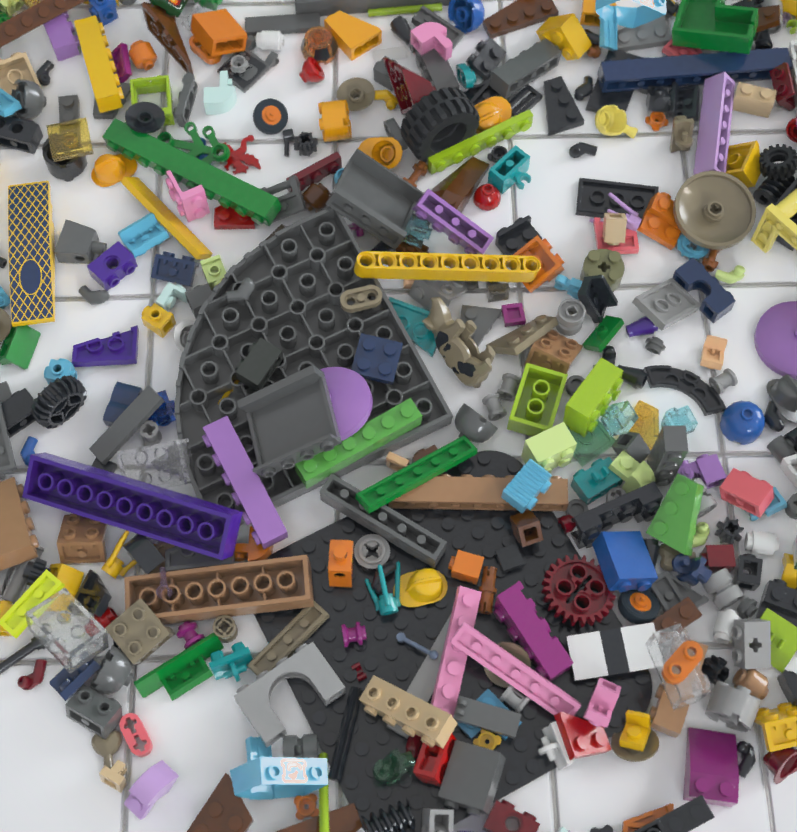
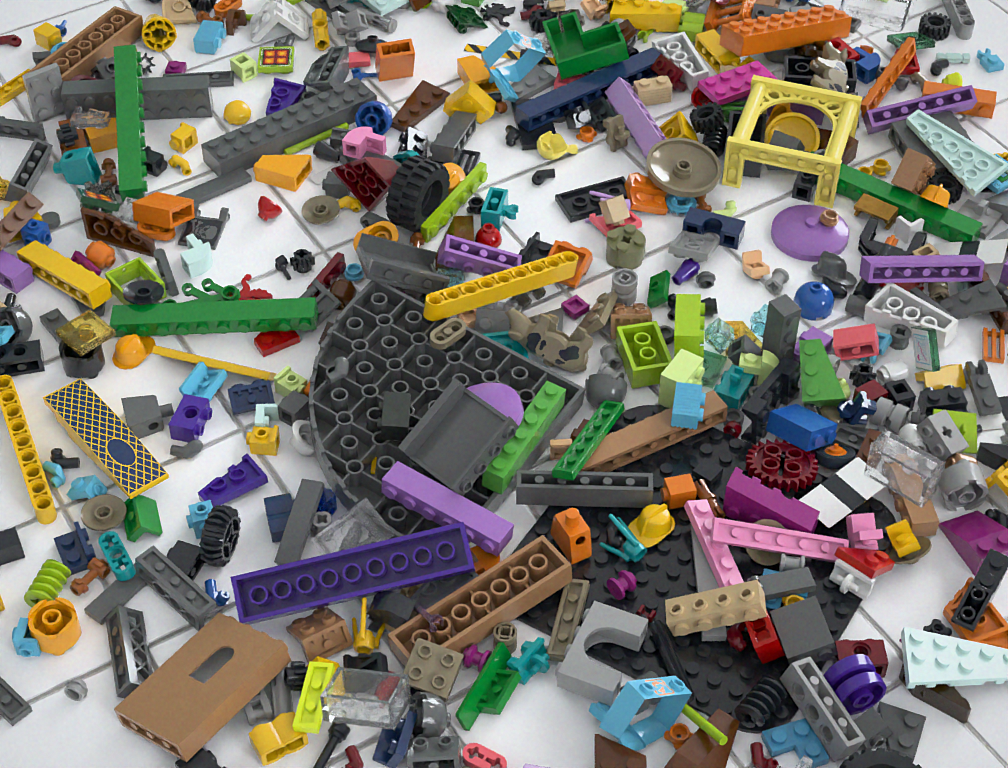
camera: 30 degrees left, 20 degrees down
(190, 203) = (226, 341): bright pink bracket -> none
(238, 60) = (197, 227): light grey plate -> none
(270, 40) = (212, 201): white brick -> none
(270, 116) = (255, 253): black wheel -> none
(319, 44) = (260, 184): clear orange cone -> none
(335, 120) = (318, 232): light orange brick -> none
(371, 541) = (600, 517): light grey gear -> none
(377, 358) = (492, 369): dark blue plate -> none
(393, 766) = (734, 655): clear green hips -> none
(402, 638) = (663, 570): sand blue hinge -> none
(498, 292) = (551, 296): clear smoke plate -> none
(526, 528) = (707, 440): reddish brown brick -> none
(561, 108) = (501, 155): black wing -> none
(571, 286) = (608, 267): medium azure plate -> none
(596, 296) = (637, 260): black bracket -> none
(683, 662) = (909, 451): orange plate -> none
(687, 383) = (745, 296): black tile -> none

